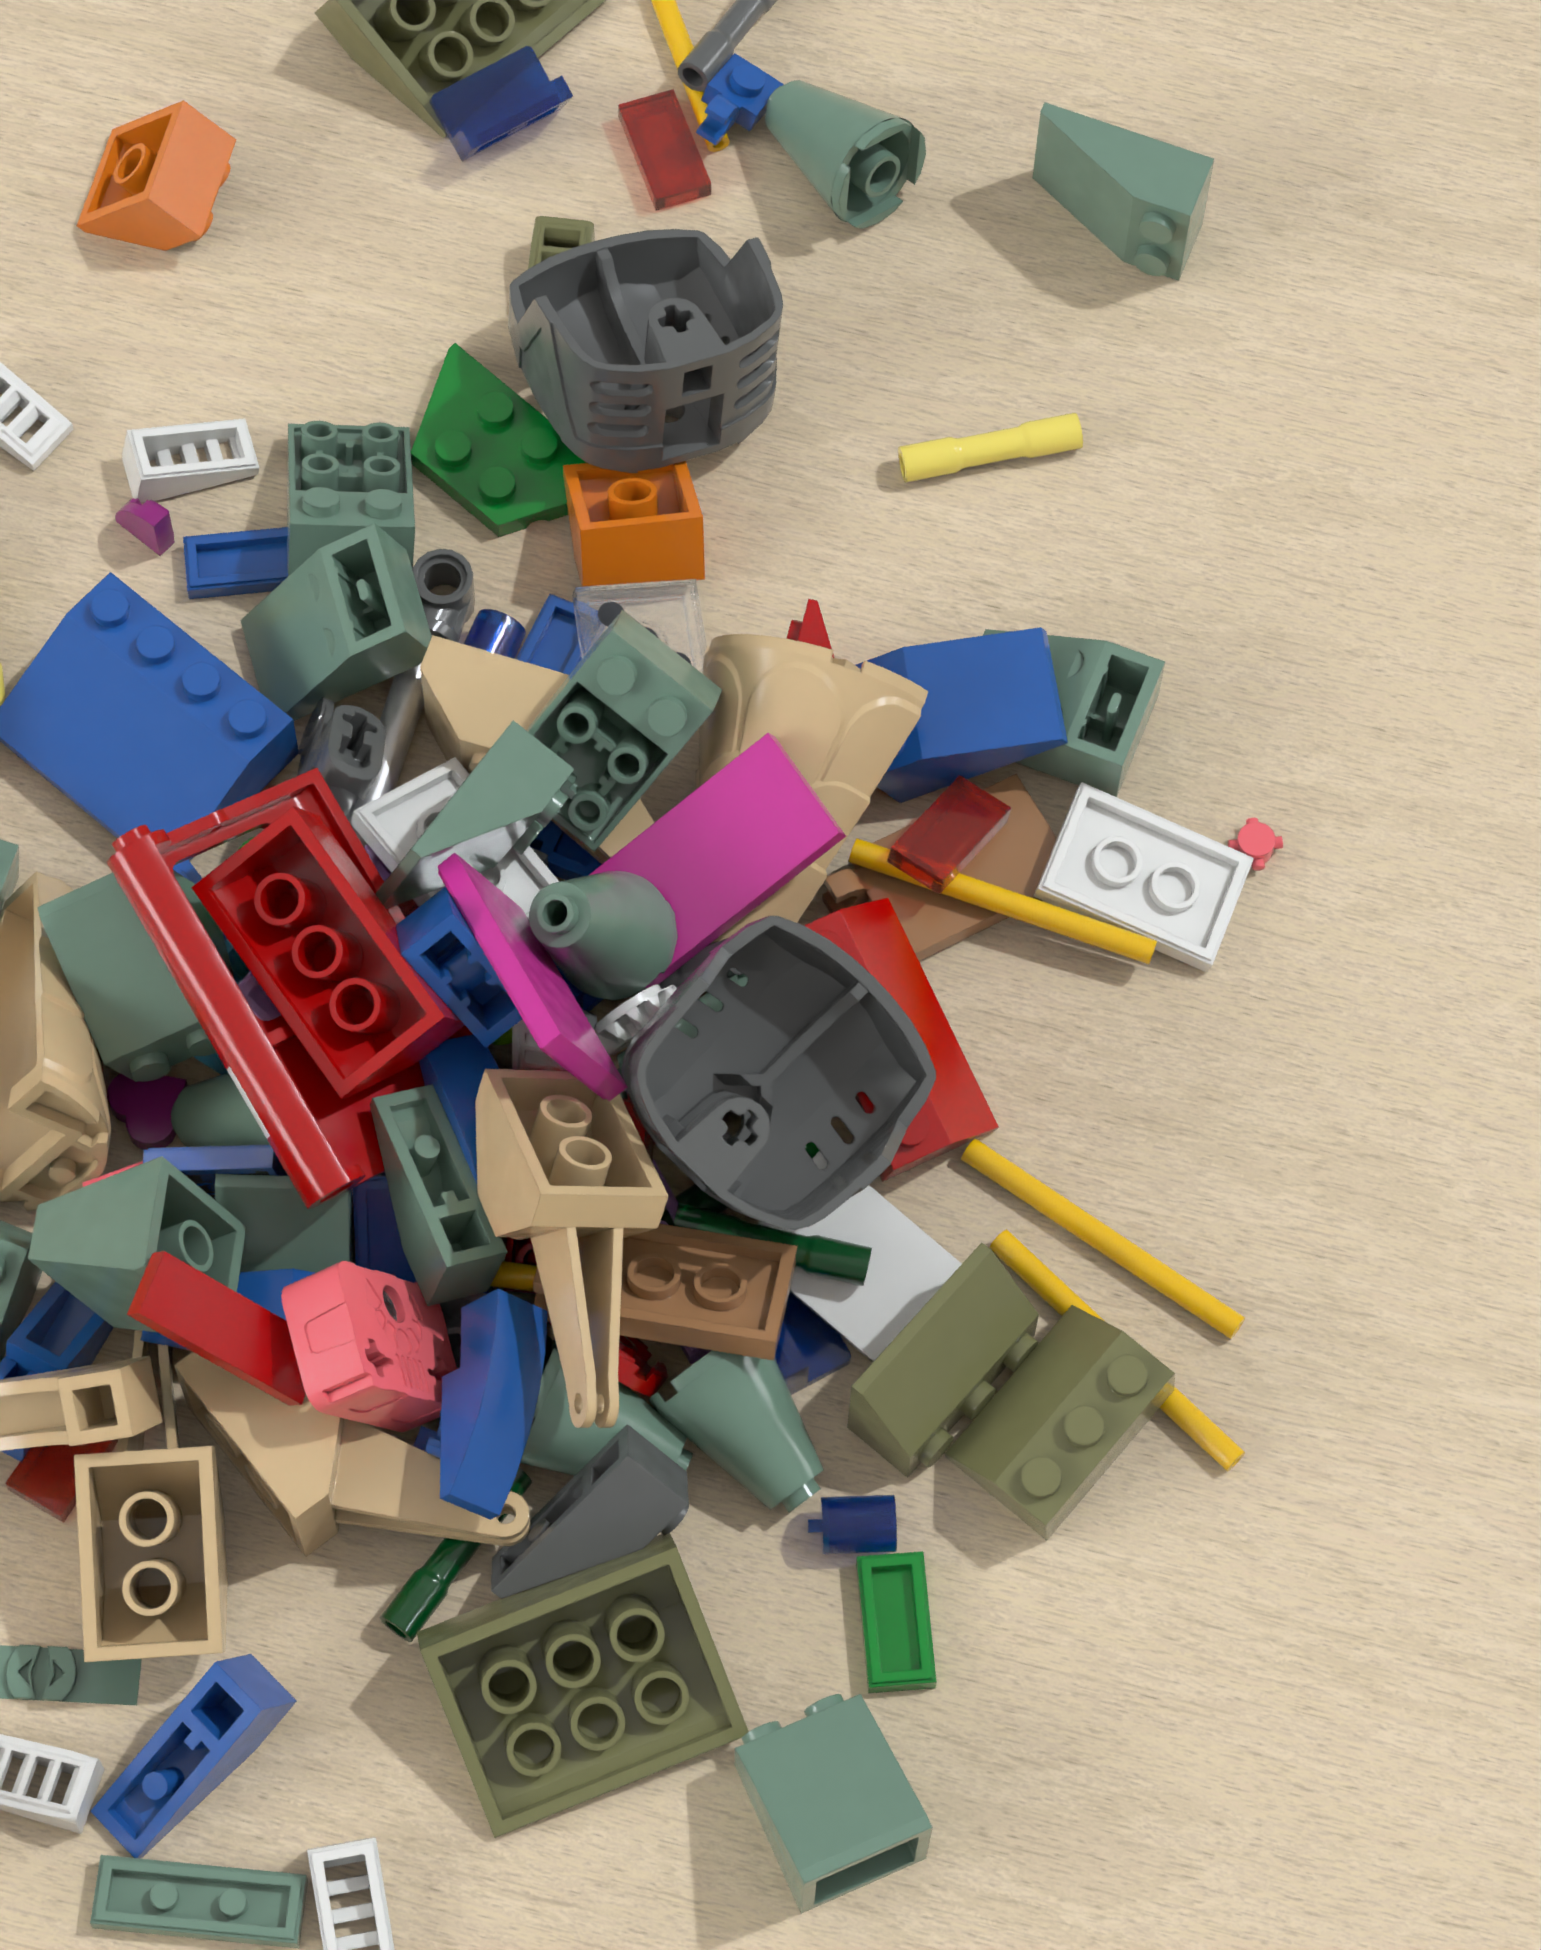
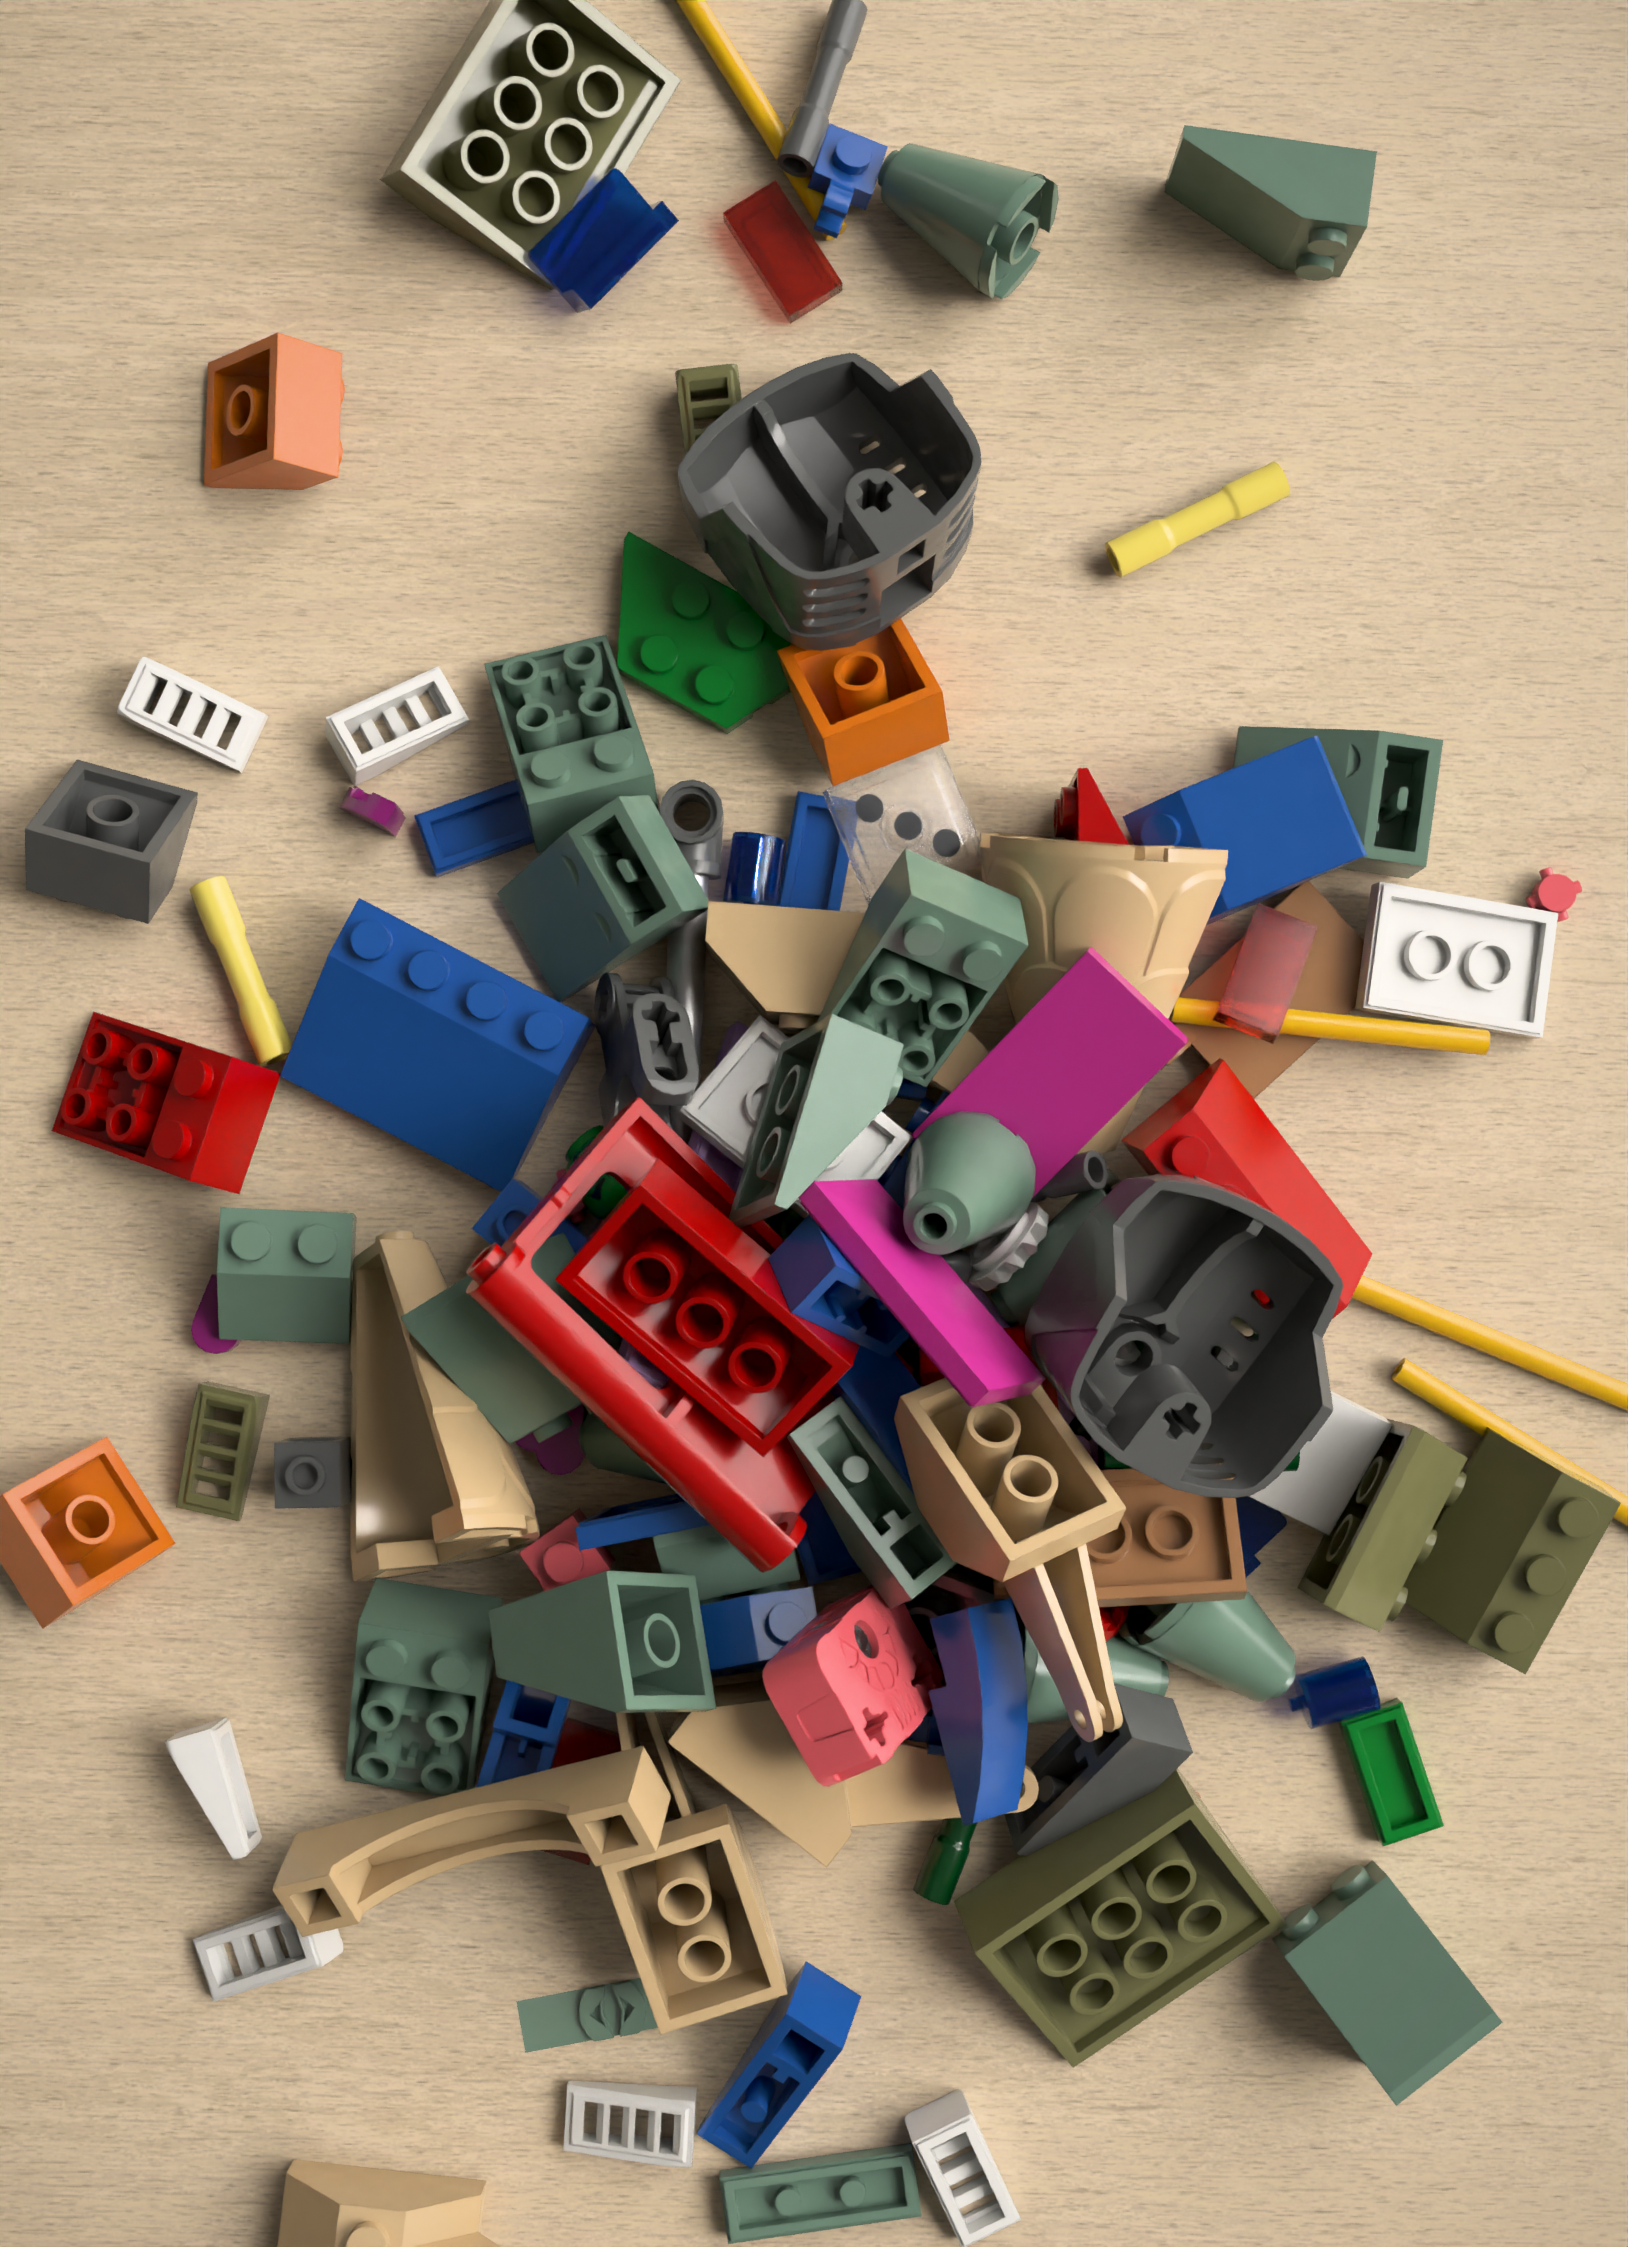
camera: 15 degrees left, 20 degrees up
(218, 1326) = (706, 1731): red tile -> none

